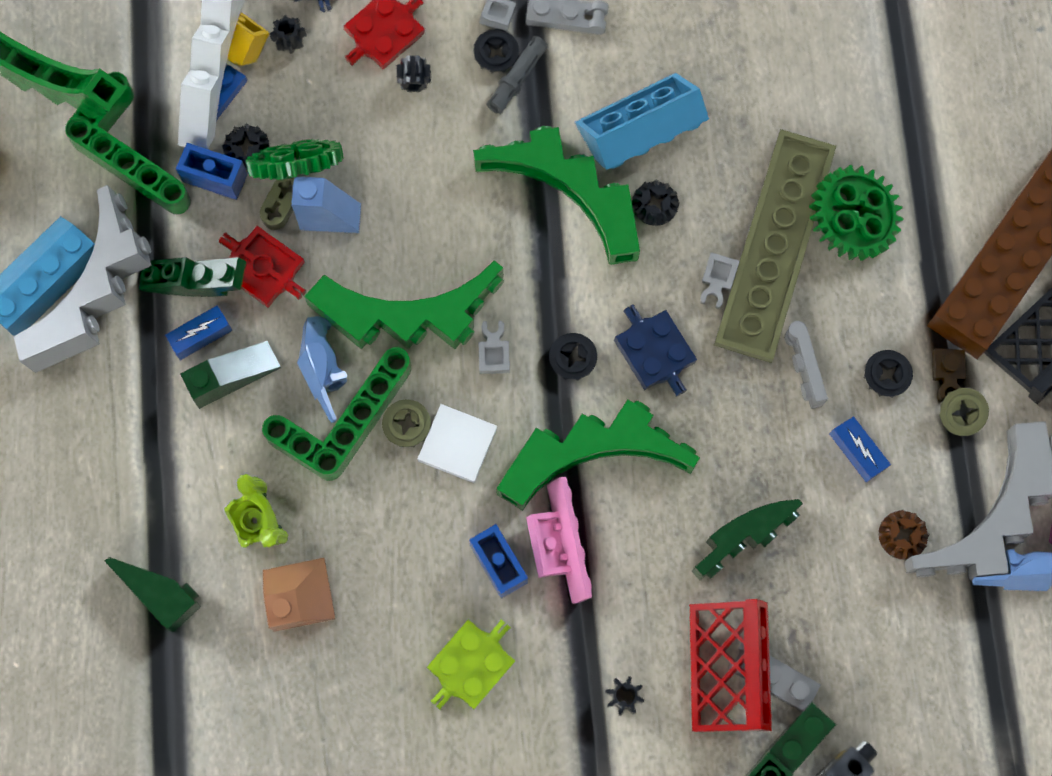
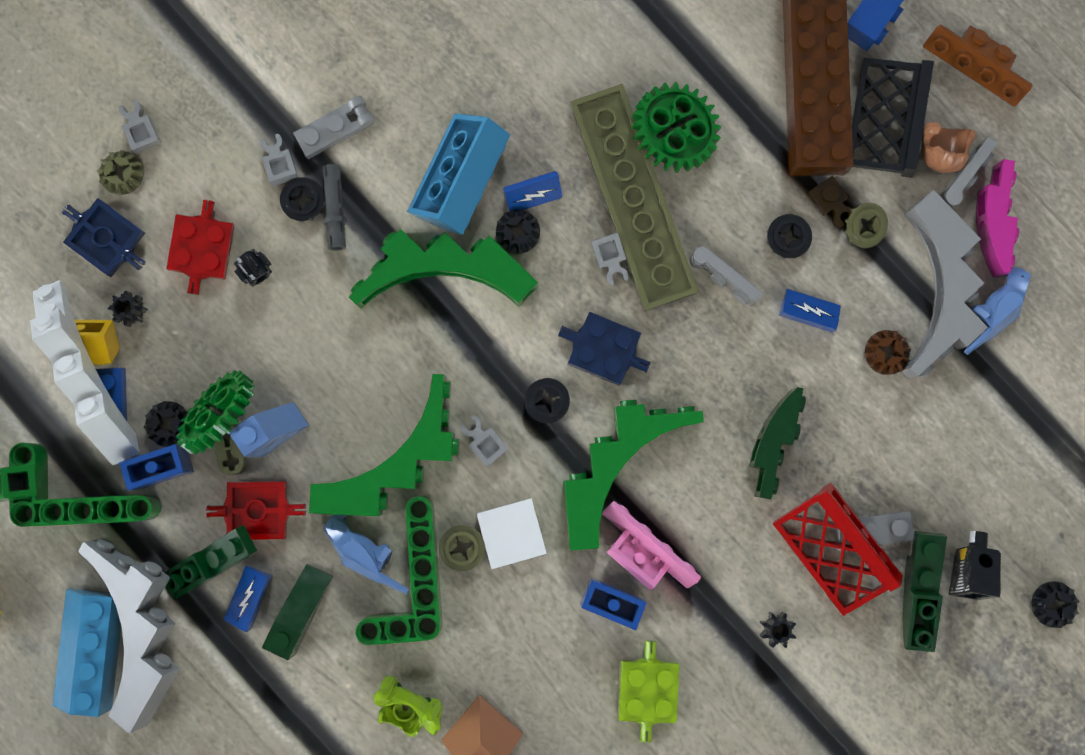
camera: 35 degrees left, 10 degrees up
(693, 179) = (533, 192): none -> blue slope

